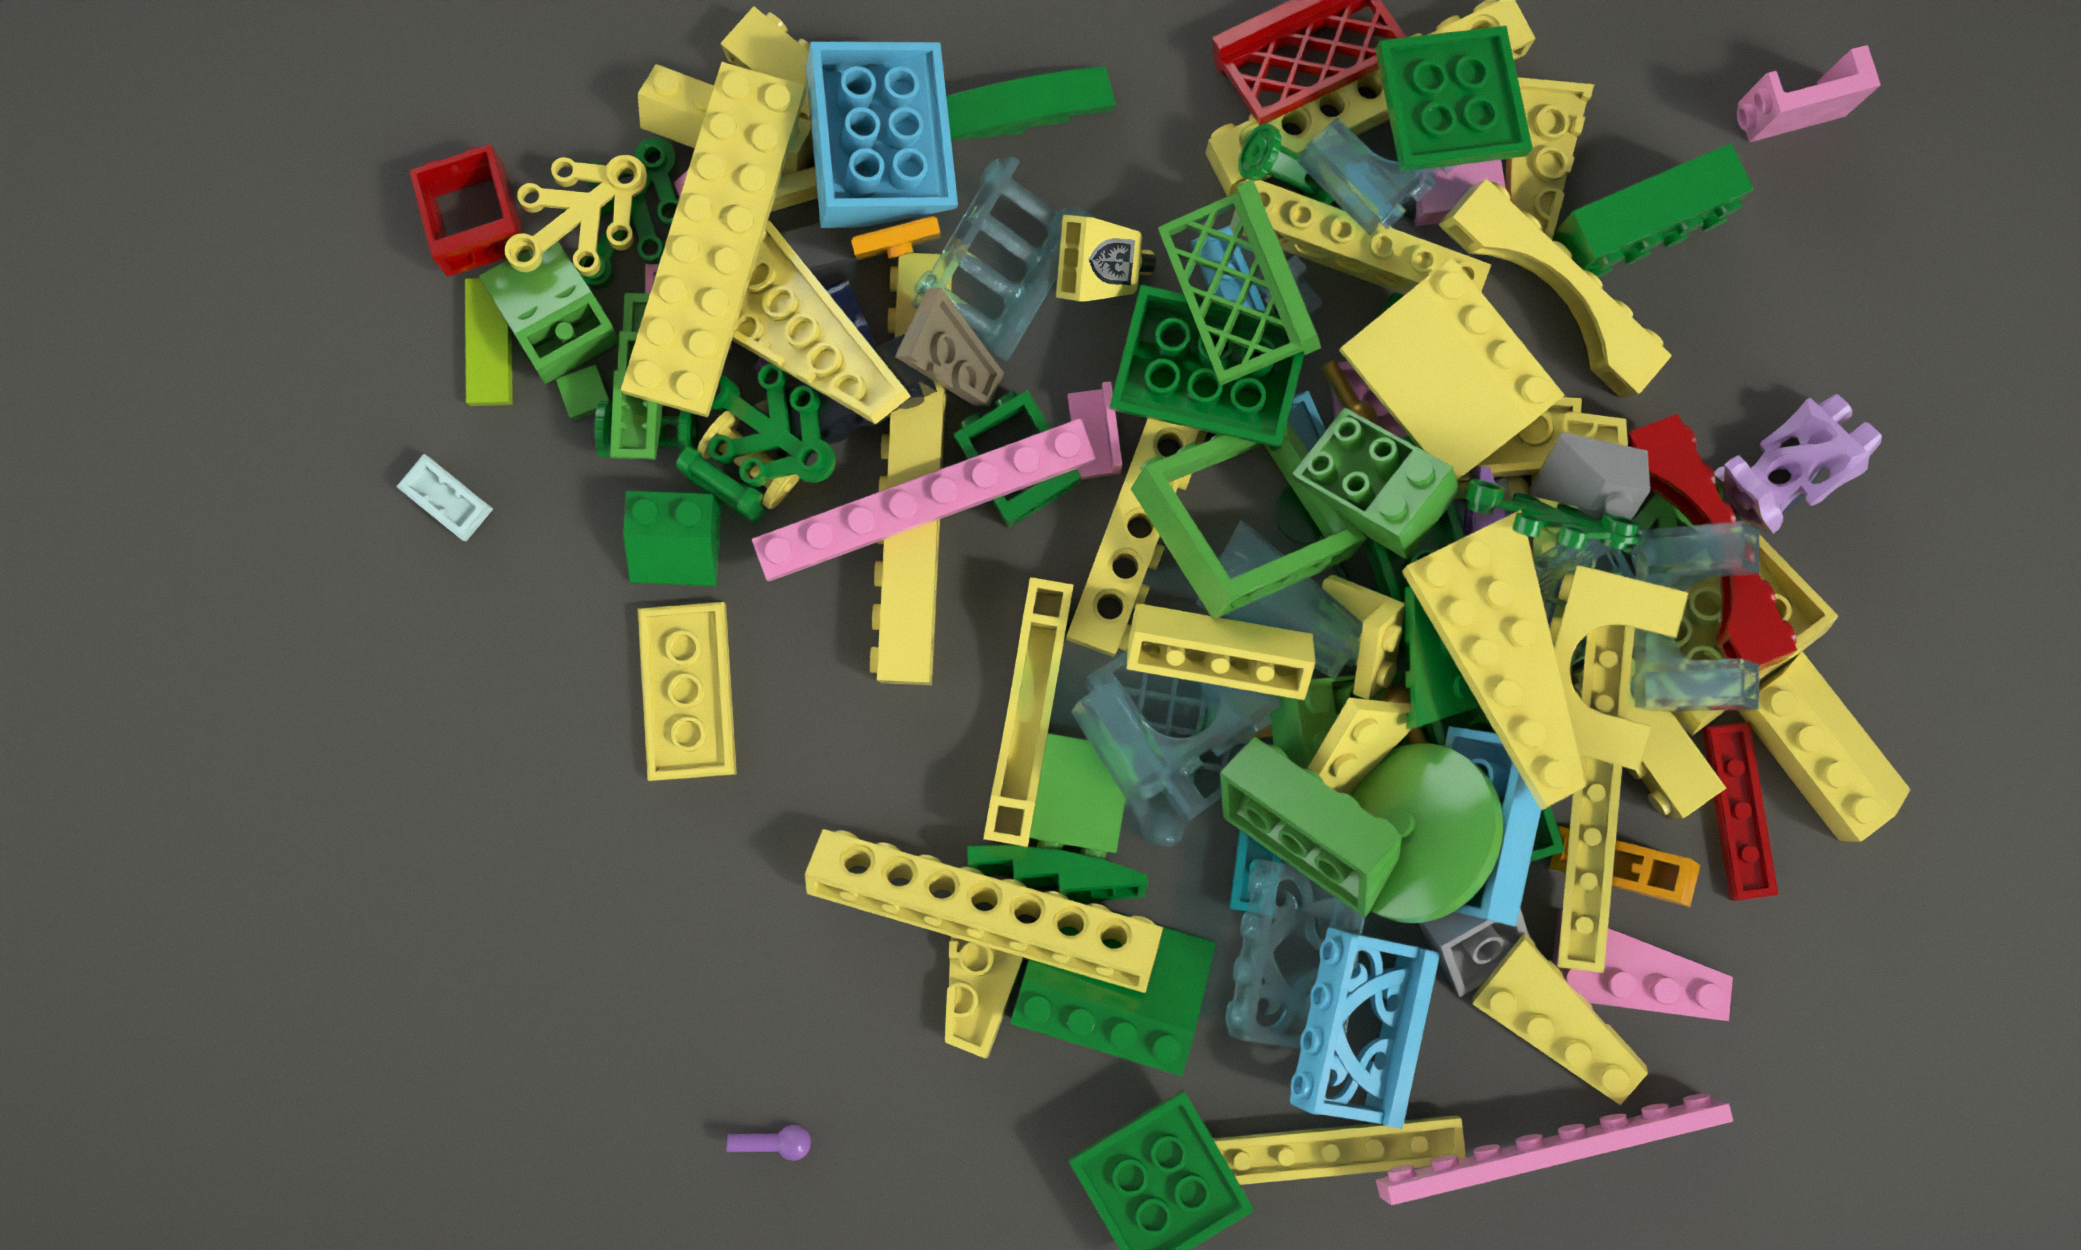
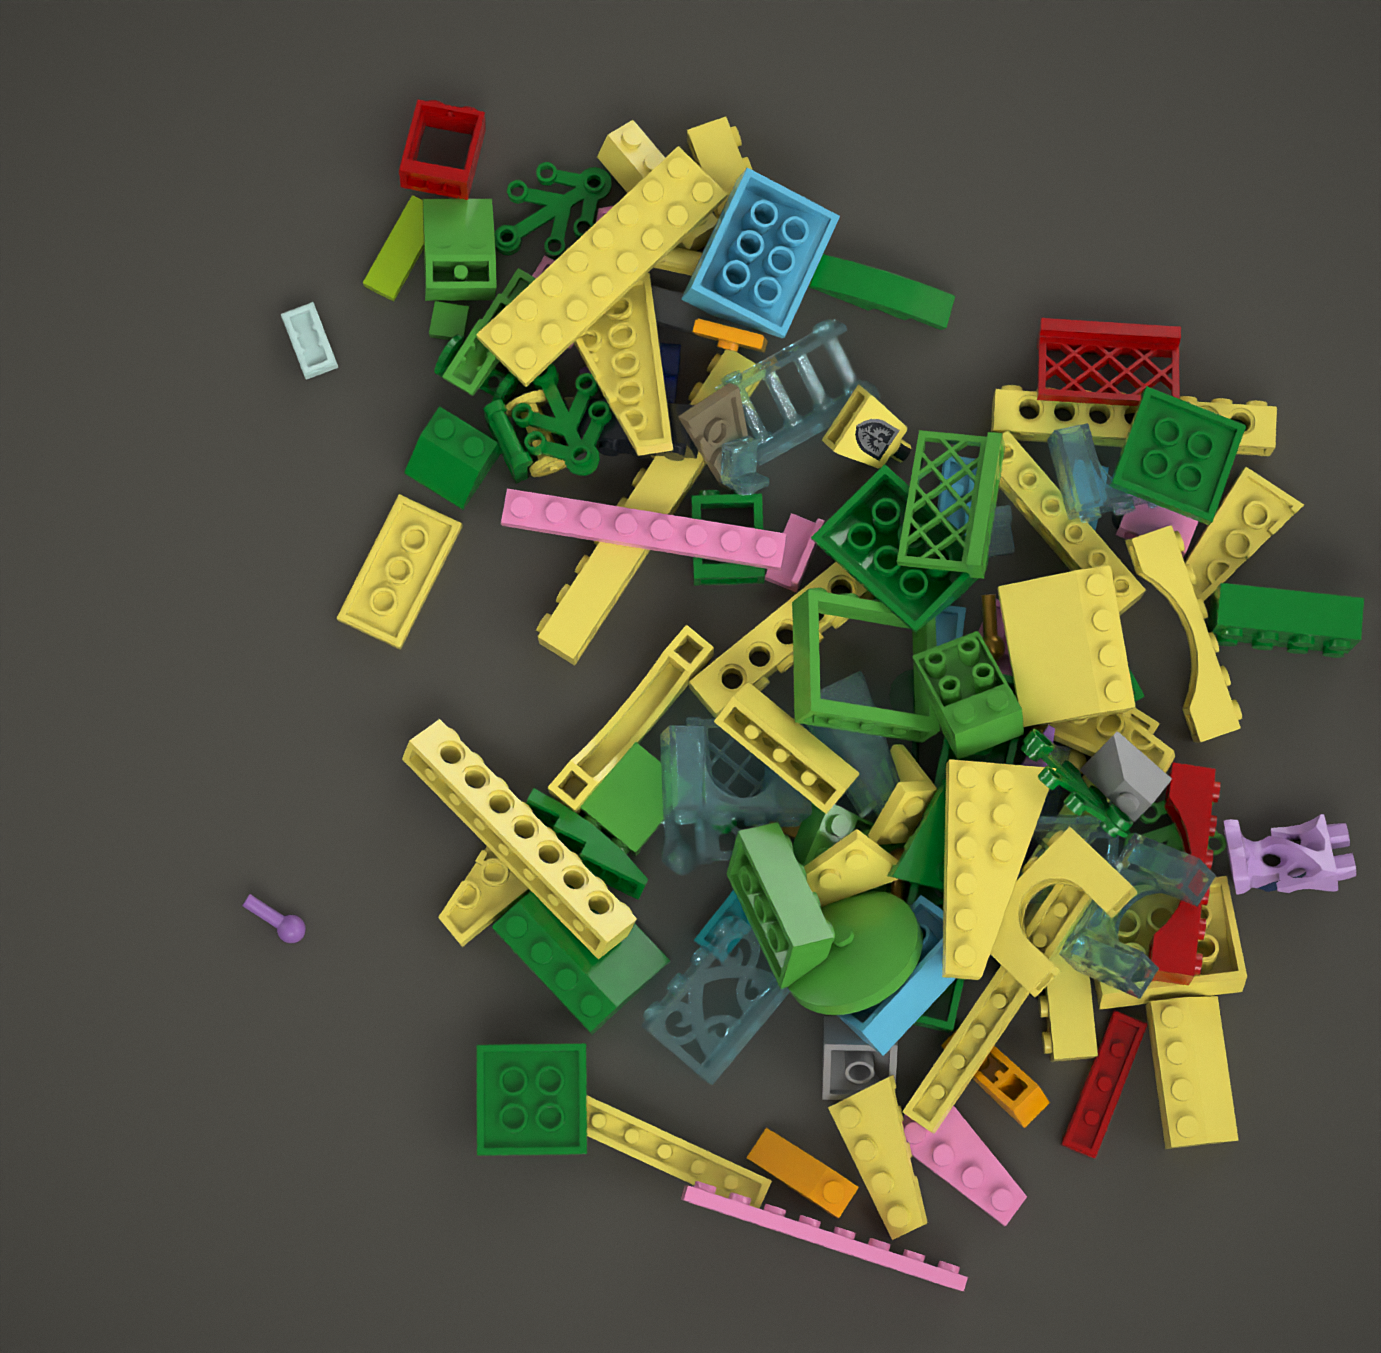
camera: 30 degrees right, 5 degrees down
(581, 209) = (521, 192): light yellow plant -> none
(987, 374) = (740, 465): none -> clear light blue bracket
(1265, 155) = (1026, 421): green hose -> none
(1324, 1042) = (788, 1068): medium azure fence -> none
(1490, 1090) = (802, 1173): none -> light orange slope

